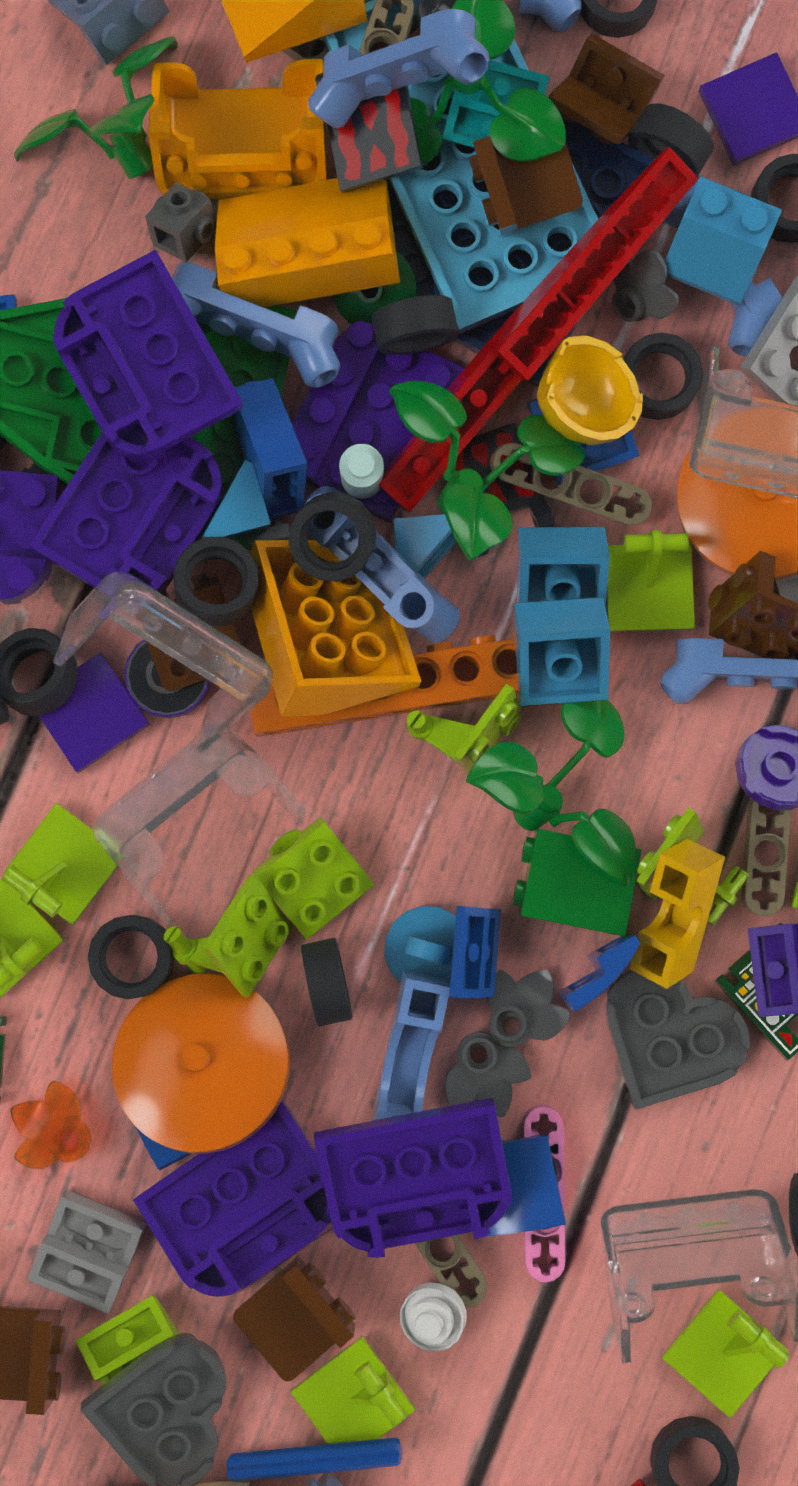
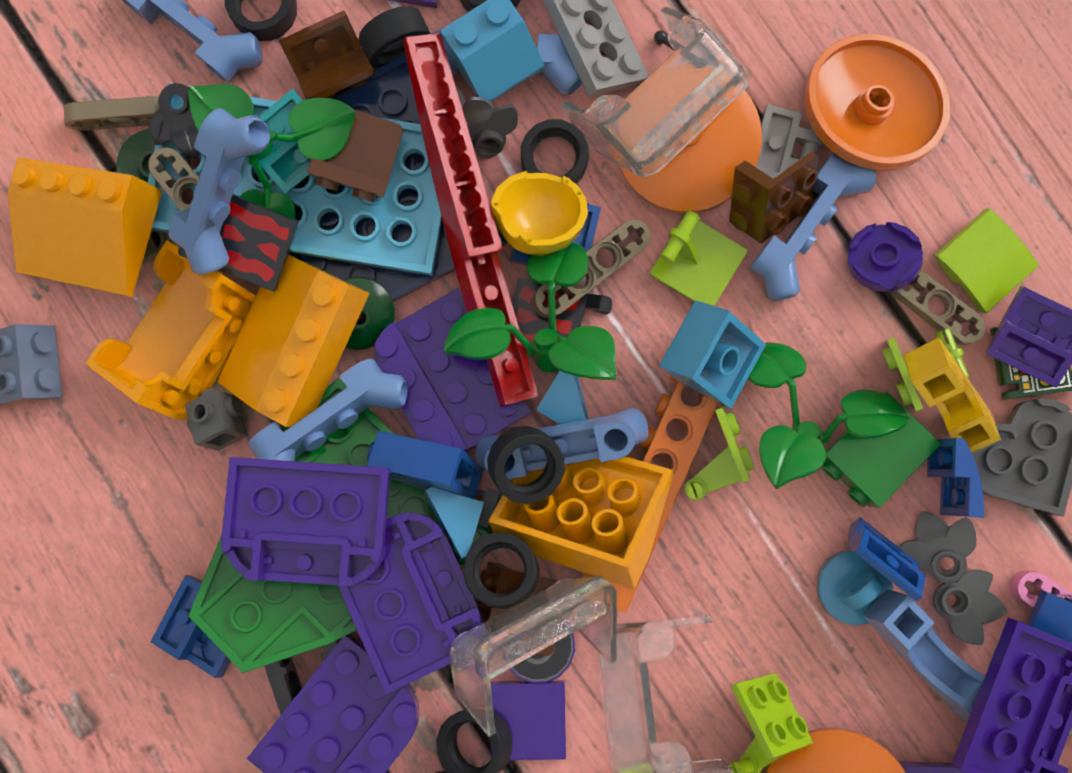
camera: 55 degrees left, 0 degrees up
(126, 124) = (119, 417): green plant -> none
(312, 876) = (752, 638): lime plate -> none
(326, 982) = (839, 679): black tyre -> none
(361, 470) = (487, 410): light aqua brick -> none
(415, 325) = (408, 302): black tyre -> none
(561, 563) = (647, 314): dark azure slope -> none

